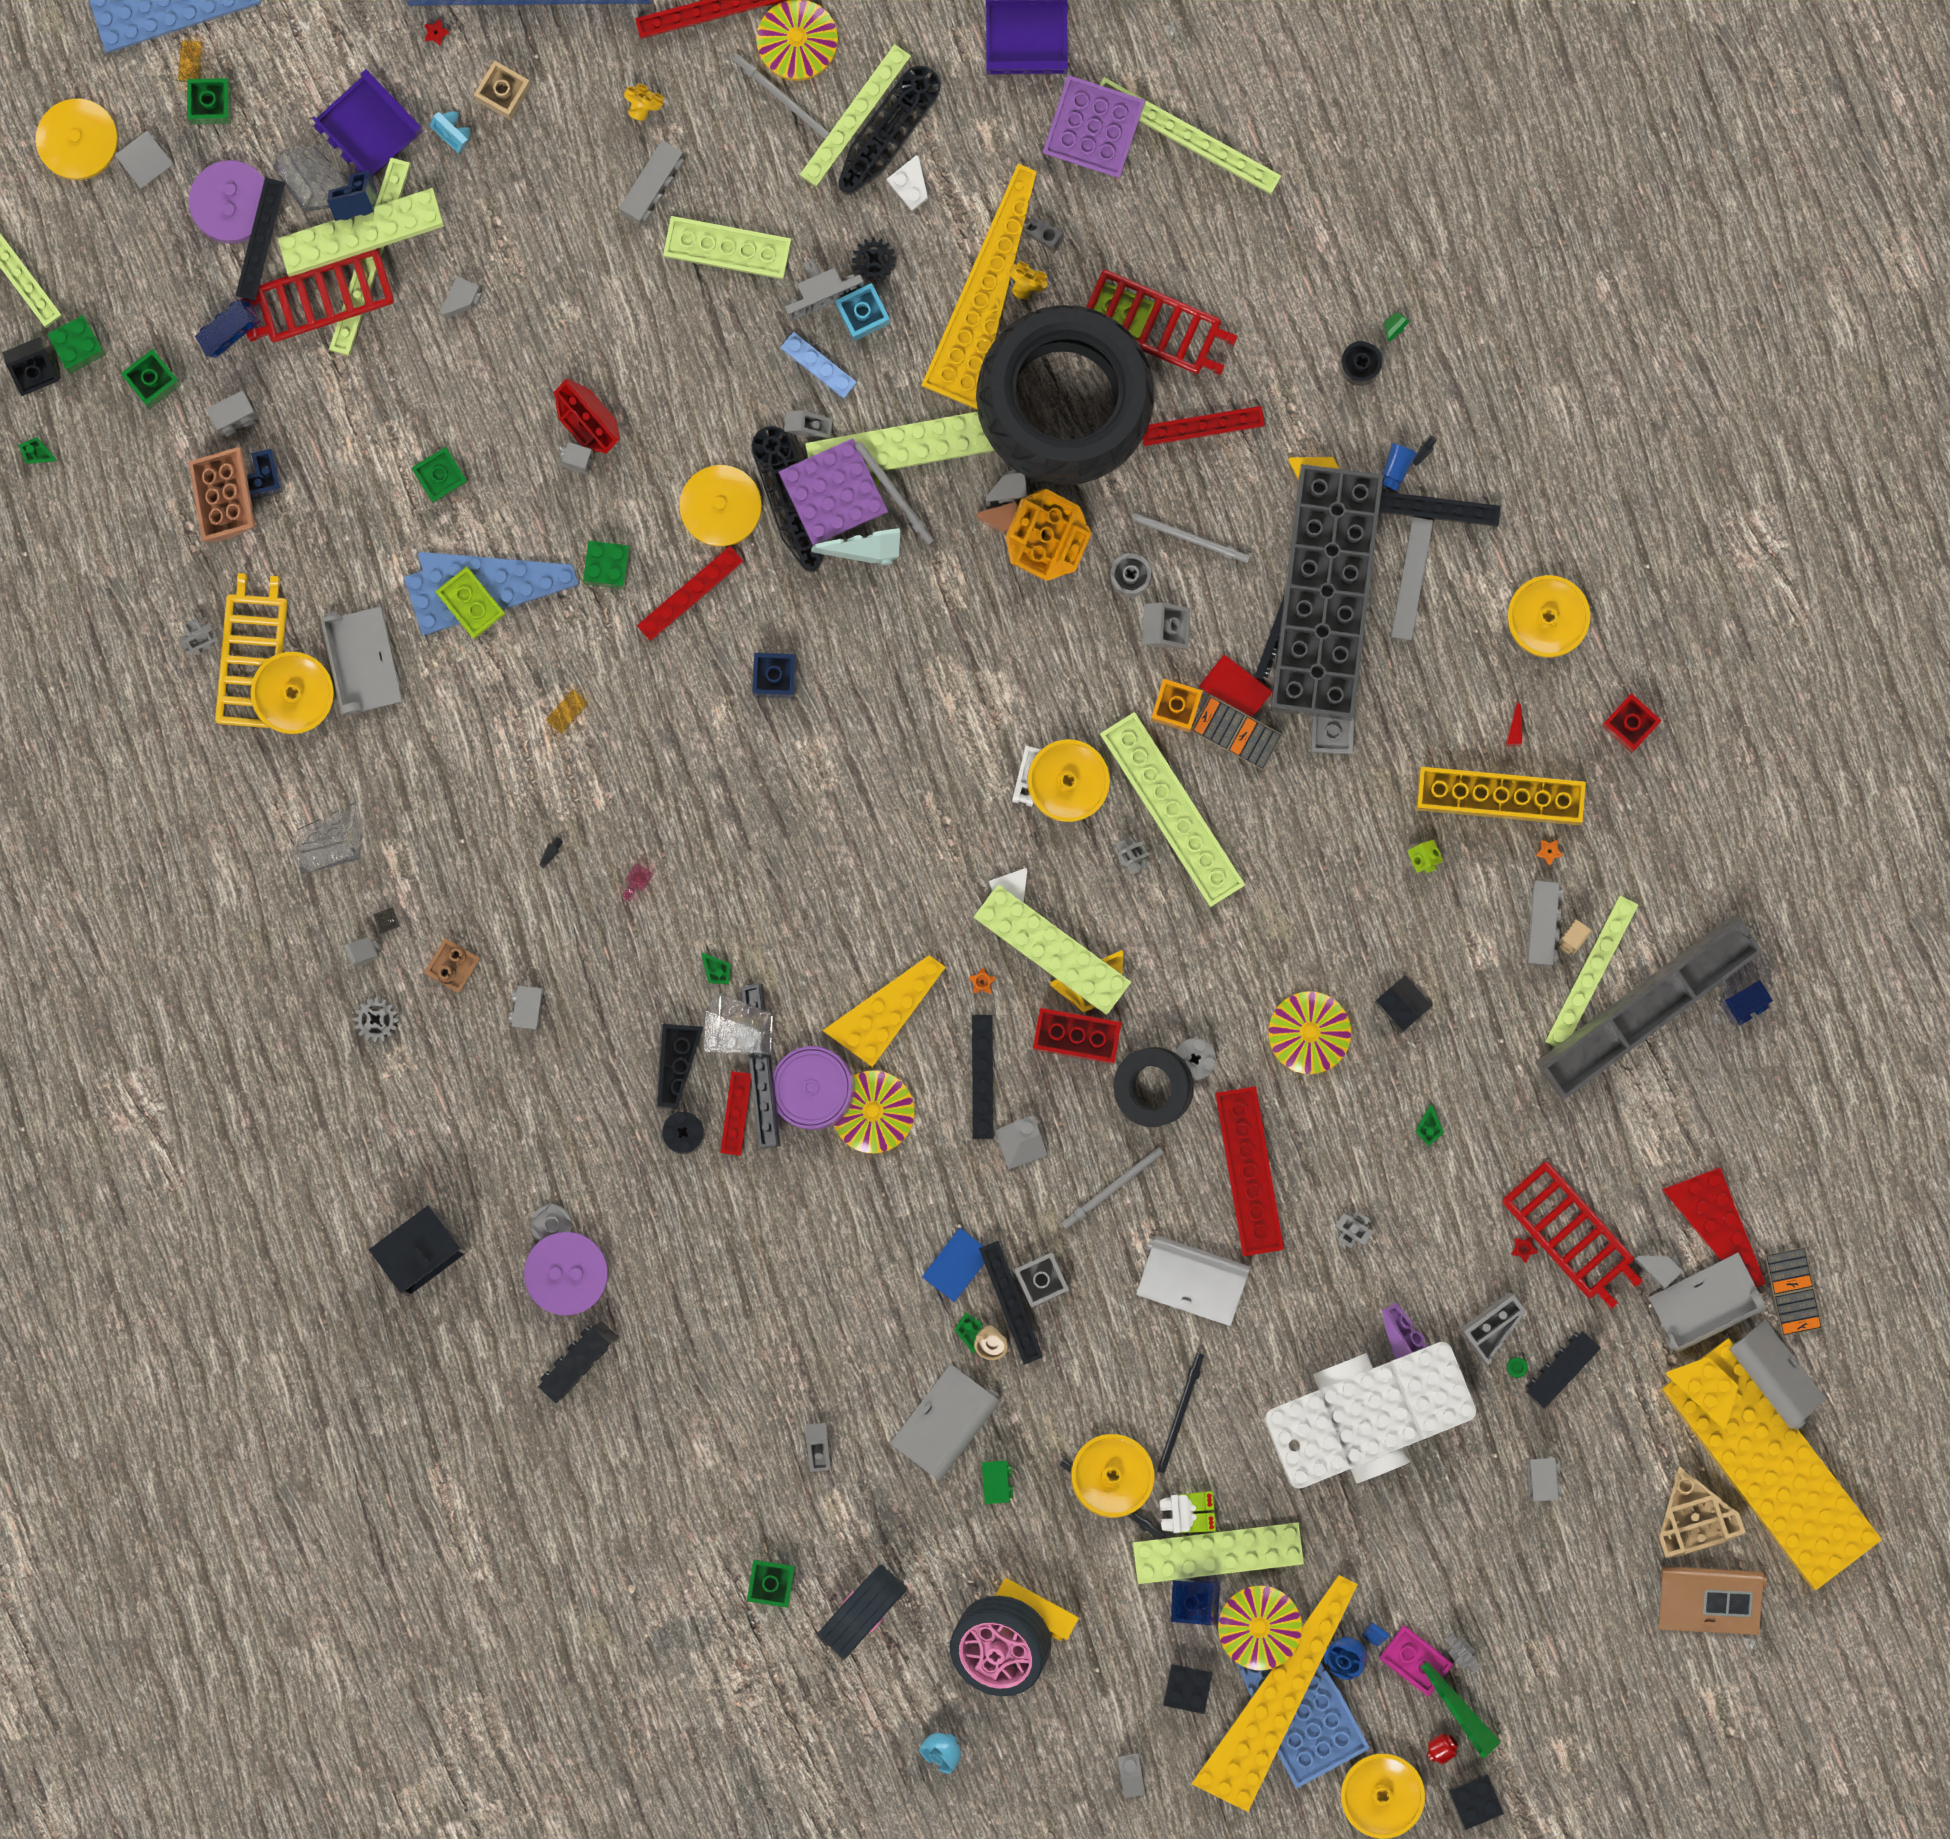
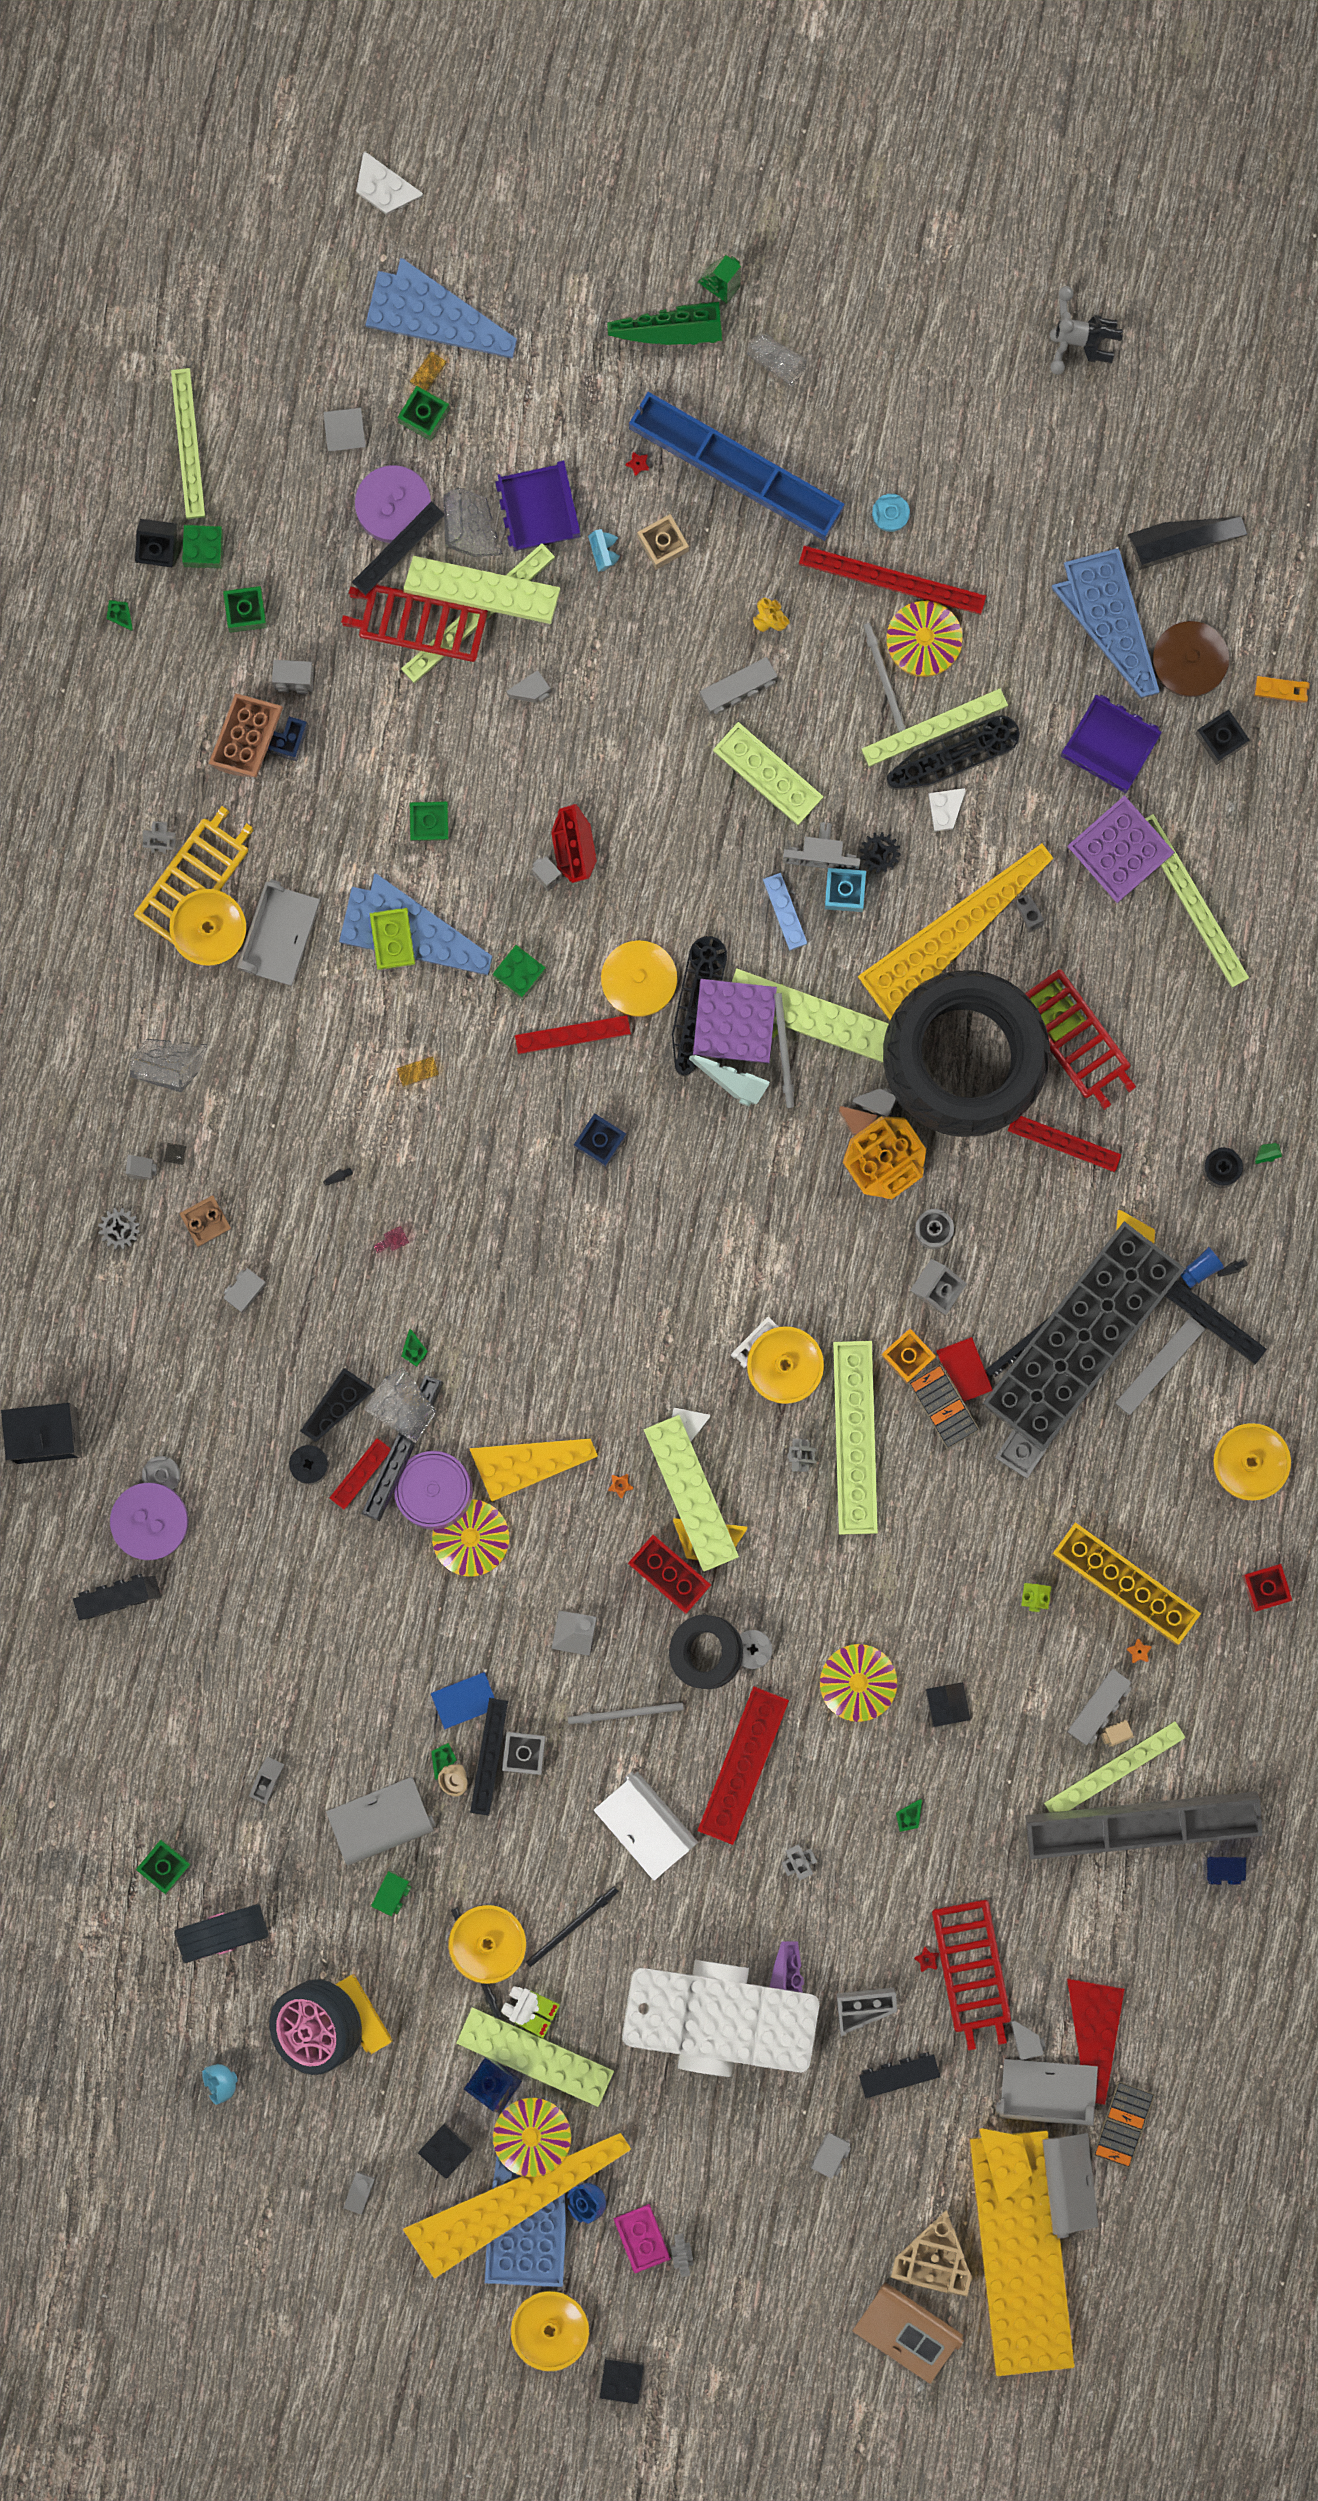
camera: 30 degrees right, 0 degrees up
(76, 139) = (301, 382): yellow dish -> none
(227, 328) = (329, 604): clear blue brick -> none
(354, 199) = (492, 560): dark blue brick -> none
(808, 424) = (747, 954): light grey slope -> none
(982, 1076) = (575, 1562): black plate -> none
(1026, 280) = (992, 941): yellow plate -> none
(1228, 552) = (1025, 1257): light grey bar -> none
(1375, 1634) = (621, 2197): blue slope -> none
(1442, 1748) = (620, 2322): red head -> none
(1474, 1728) = (656, 2326): green wedge -> none
(1515, 731) = (1168, 1540): red slope -> none
(1517, 1367) = (864, 2051): green tile -> none

